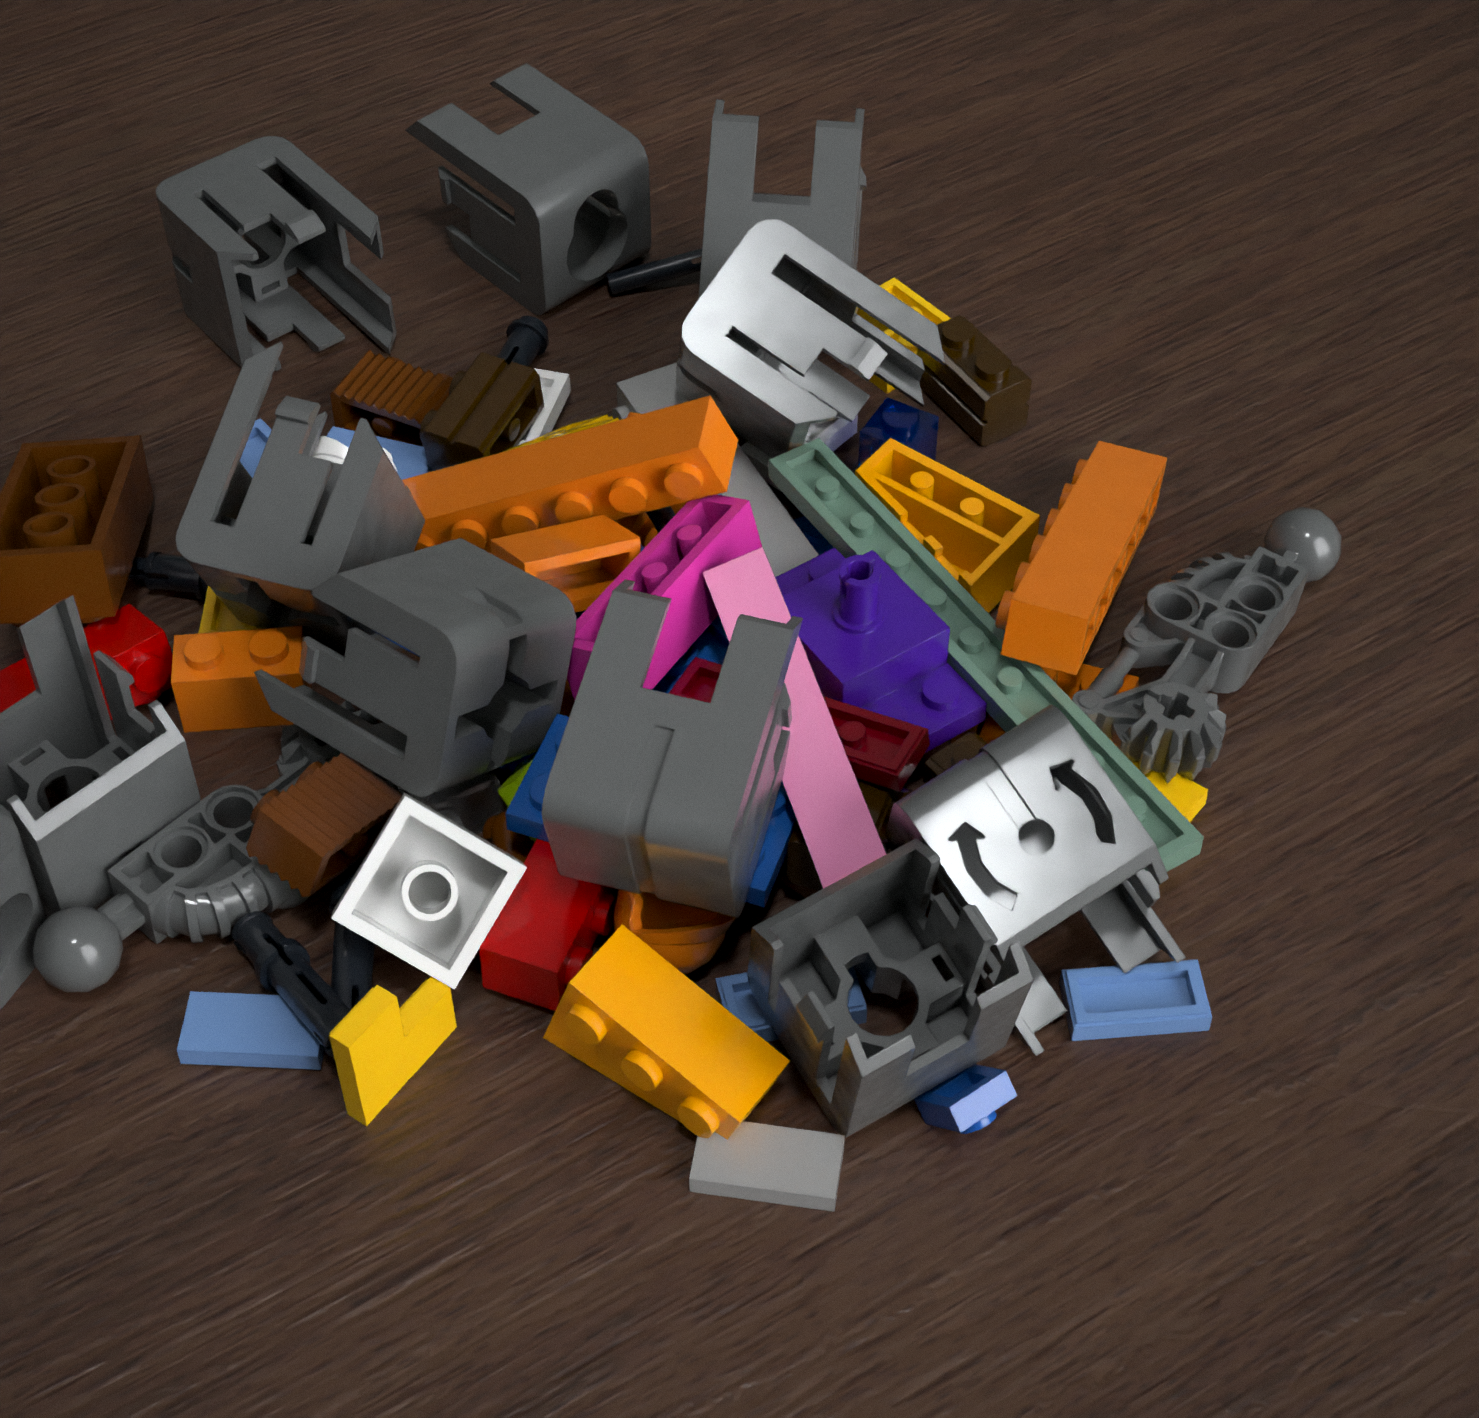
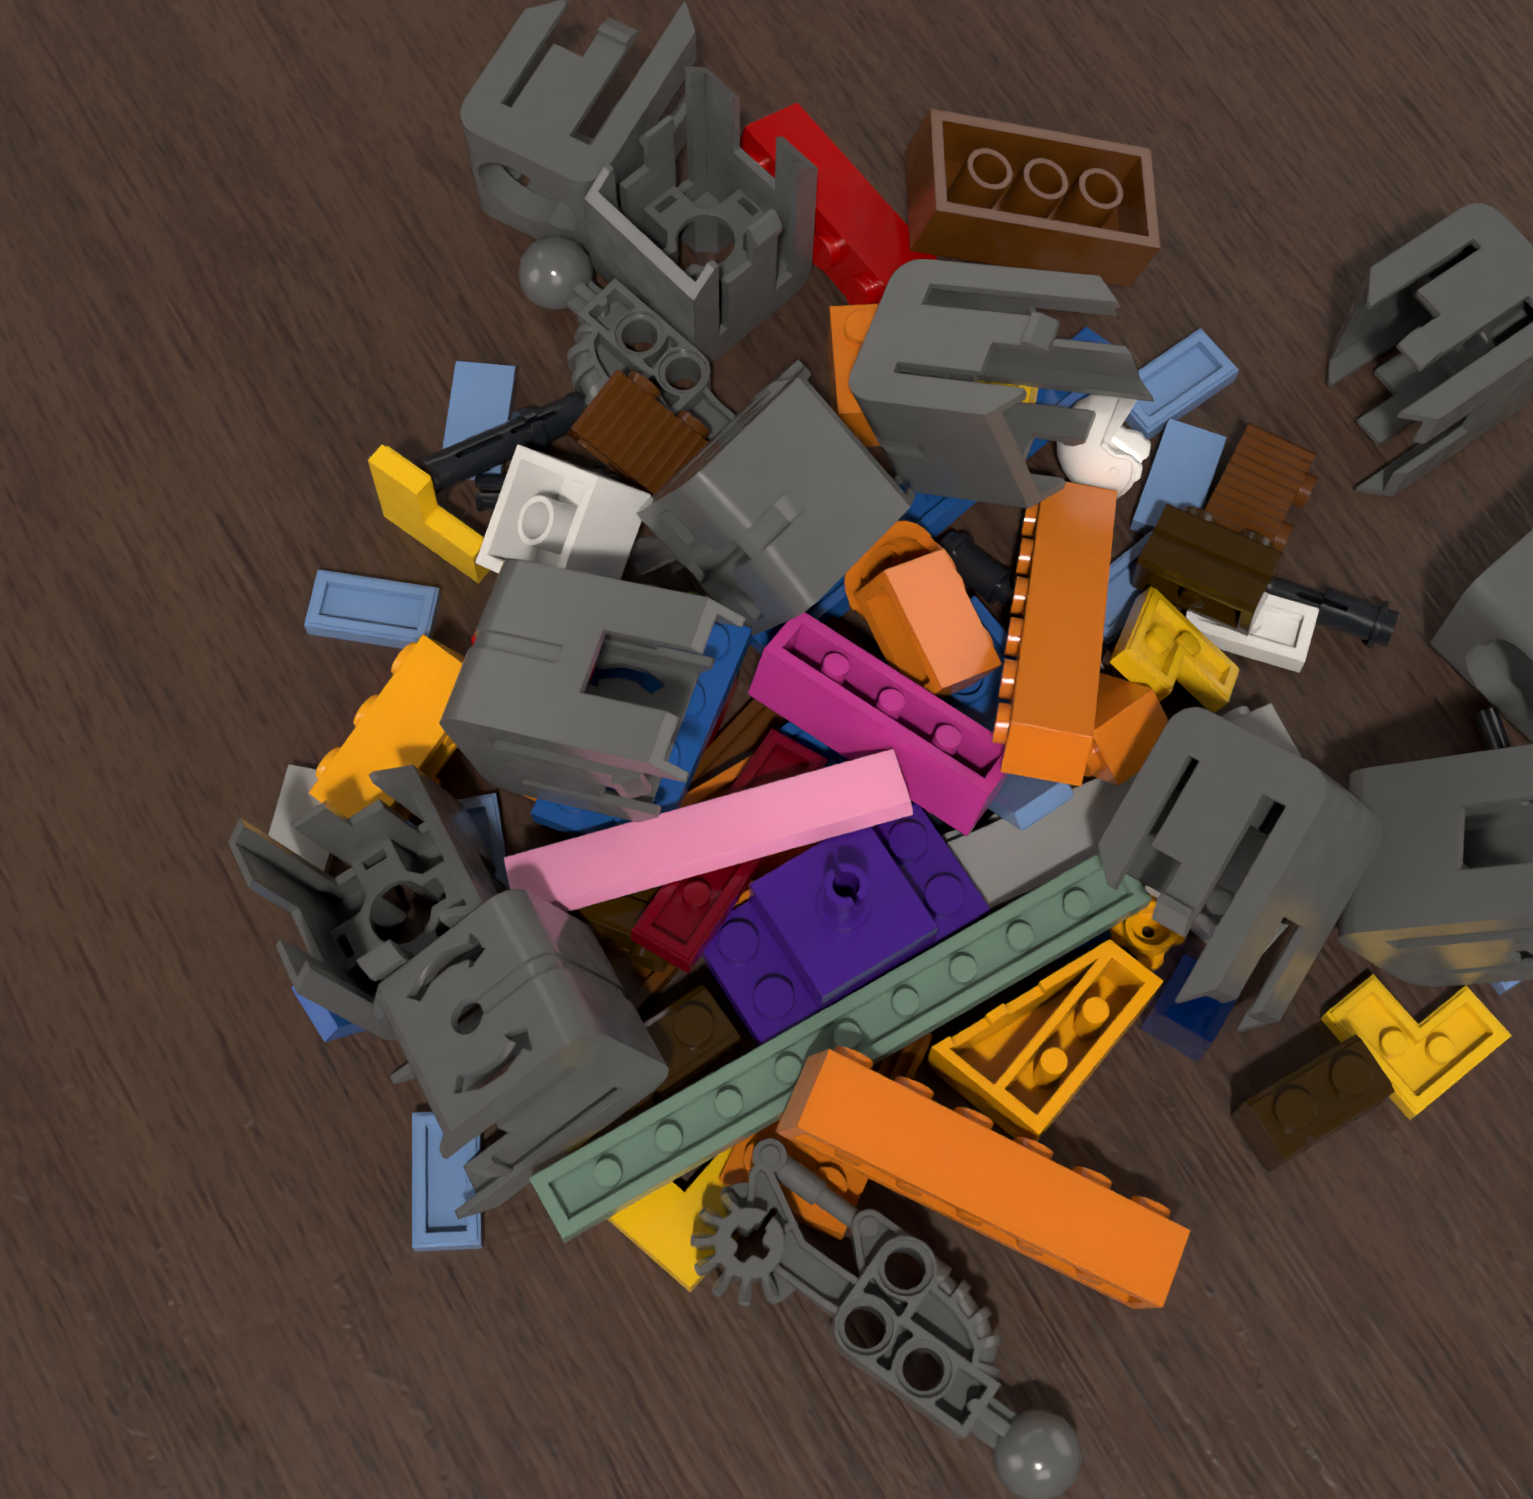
camera: 90 degrees right, 20 degrees up
(492, 1120) = (371, 609): none -> medium blue tile

